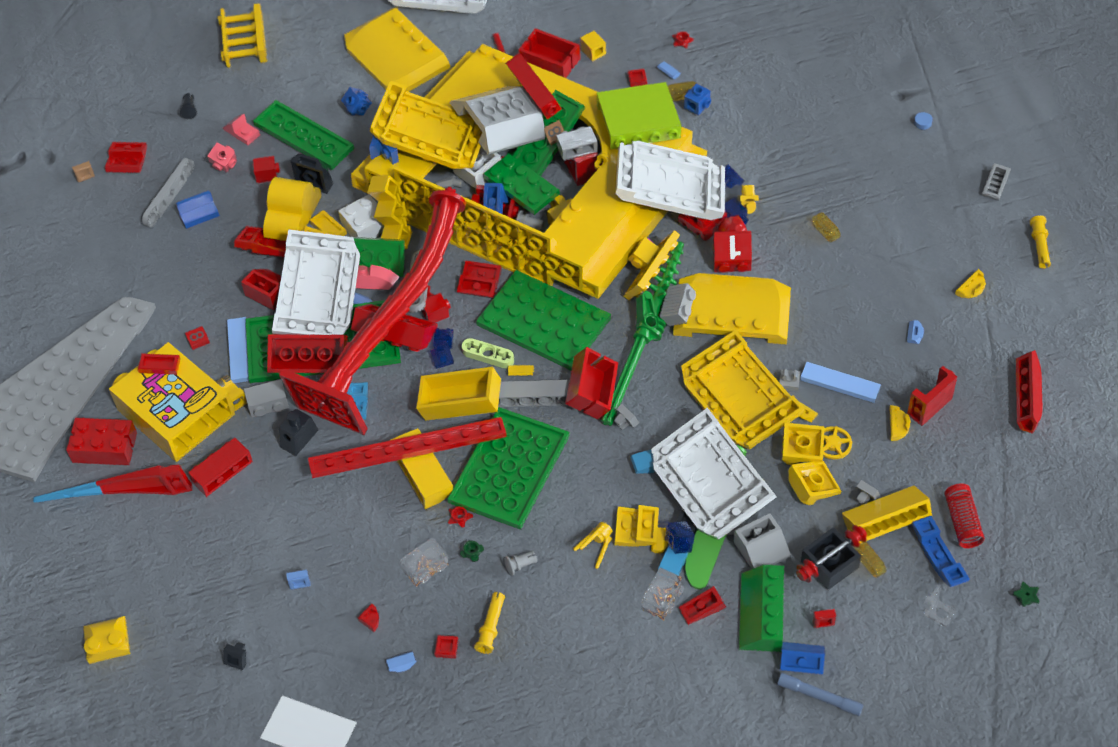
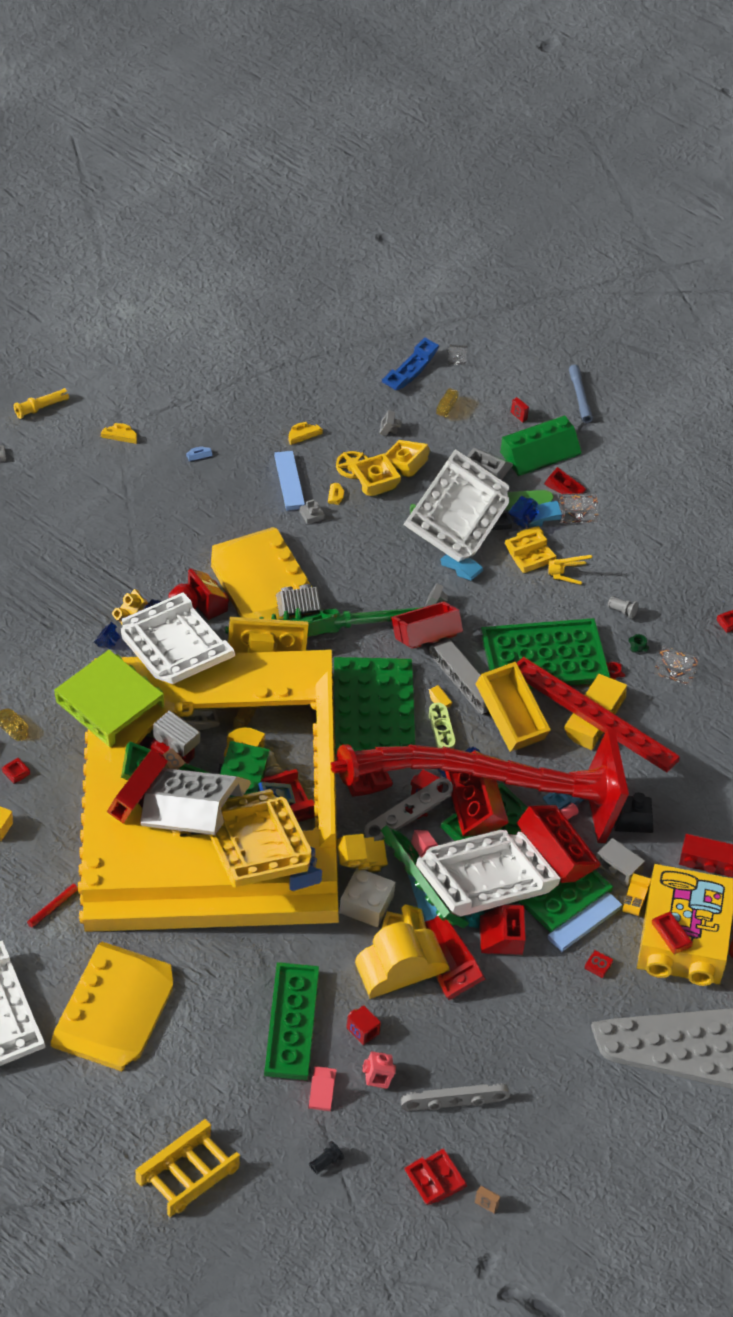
camera: 130 degrees left, 5 degrees down
(197, 209) = (457, 1057): panel -> none
(311, 170) = (343, 971): black slope -> none
(356, 101) = (218, 990): blue brick -> none
(488, 630) = (697, 598): yellow pin -> none
(550, 52) = (40, 849): red piece -> none
(697, 99) = (23, 698): blue brick -> none
(739, 391) = (352, 534): yellow slope -> none
(802, 658) = (555, 407): blue panel -> none
(826, 227) = (124, 546): clear yellow beam -> none
(832, 556) = (469, 417): black brick -> none
(889, 512) = (407, 408): yellow brick -> none
(923, 406) = (270, 406): red panel -> none
(966, 533) = (353, 368): red piece -> none
(1023, 598) = (405, 313): dark green plate -> none
(1028, 391) = (215, 360): red brick -> none

